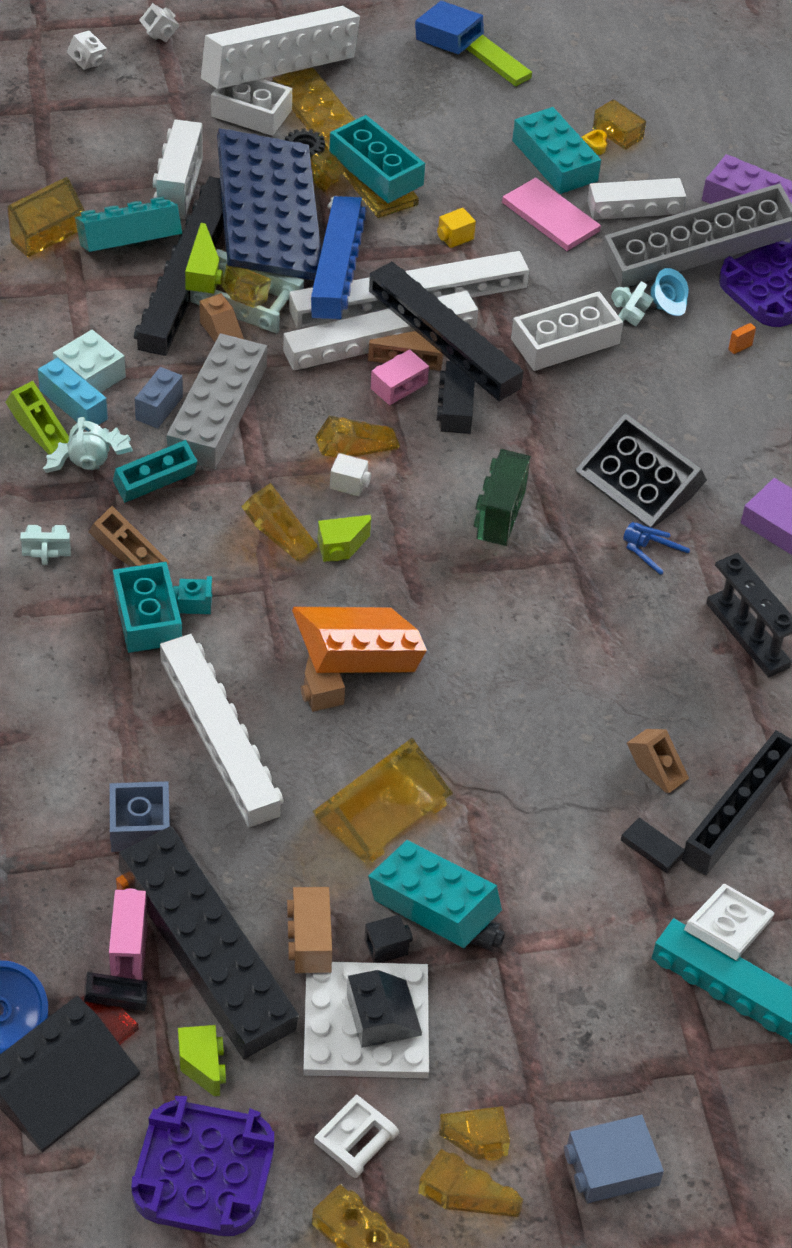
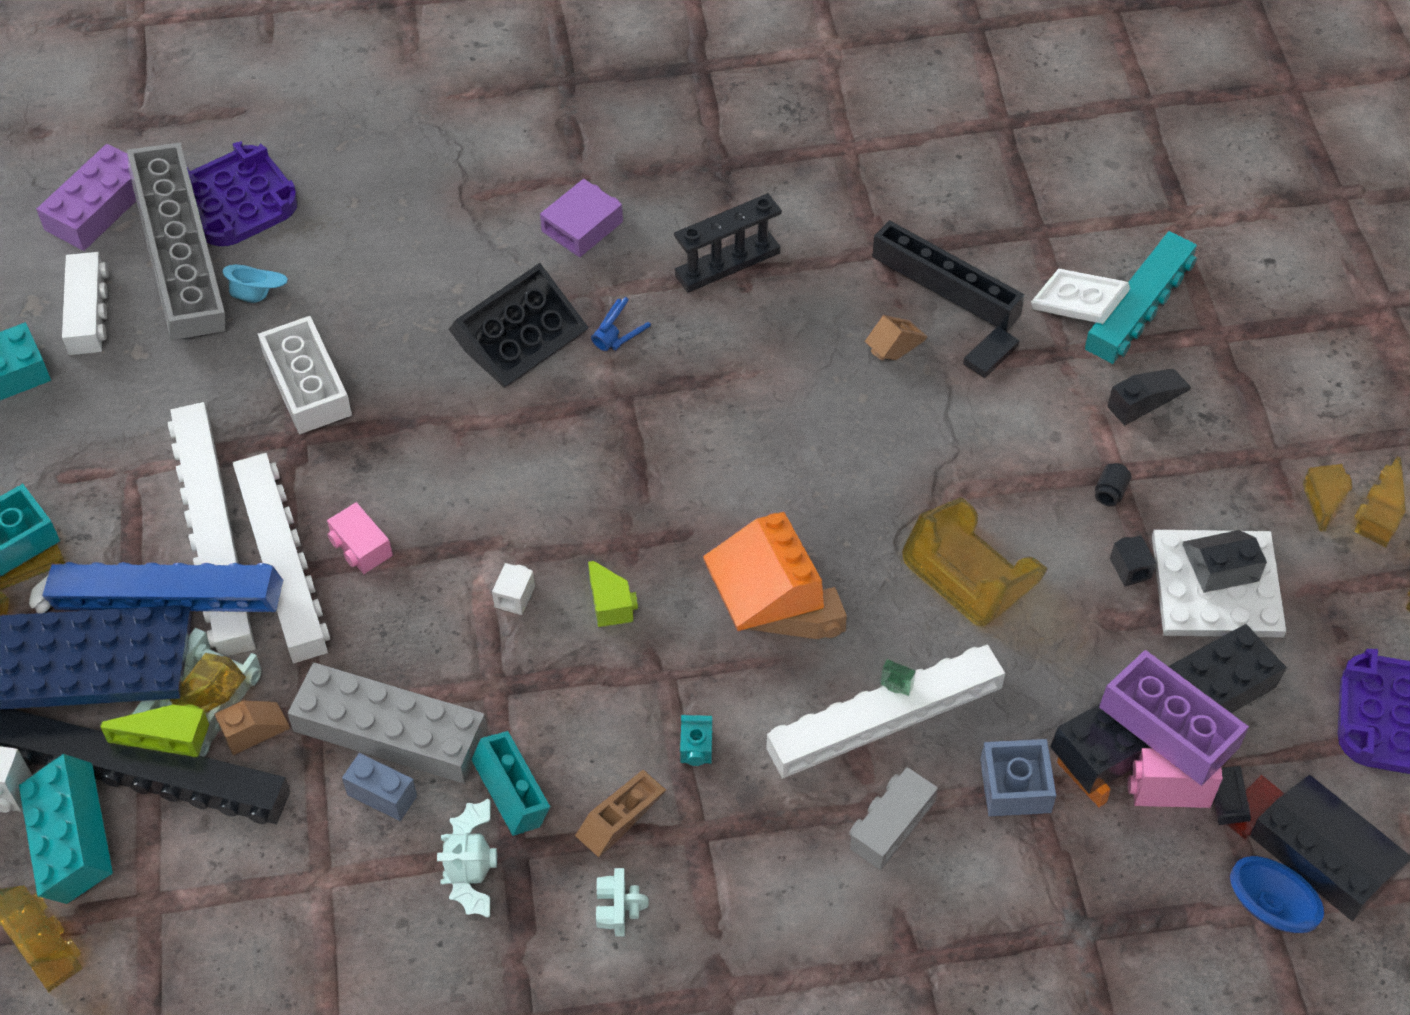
camera: 85 degrees left, 5 degrees up
(36, 417) = (406, 925): lime slope -> none
(72, 392) = (367, 885): medium azure brick -> none
(93, 360) = (315, 869): light aqua brick -> none
(109, 728) = (892, 817): none -> light grey brick
(146, 606) = (723, 782): teal brick -> none
(163, 900) = (1173, 717): none -> medium lavender brick
(199, 1057) = (1289, 716): lime slope -> none
(236, 718) = (897, 678): none -> clear green plate
(278, 522) = (584, 658): clear yellow slope -> none
(310, 930) = (1138, 618): medium nougat brick -> none
(348, 1128) = (1344, 596): white plate -> none
(354, 438) = (456, 583): clear yellow slope -> none
(388, 347) = (313, 509): medium nougat slope -> none
(435, 893) = (1089, 511): teal brick -> none
(446, 331) = (308, 479): black brick -> none
(456, 227) = (108, 476): yellow brick -> none
(457, 400) = (395, 482): black brick -> none
(502, 497) = (563, 439): clear green brick -> none
(551, 214) = (90, 387): bright pink tile -> none
(606, 977) = (1145, 393): none -> black slope
(613, 1159) = (1333, 396): sand blue brick -> none
(624, 298) = (258, 318): light aqua hips -> none
(742, 338) = (323, 228): orange tile -> none

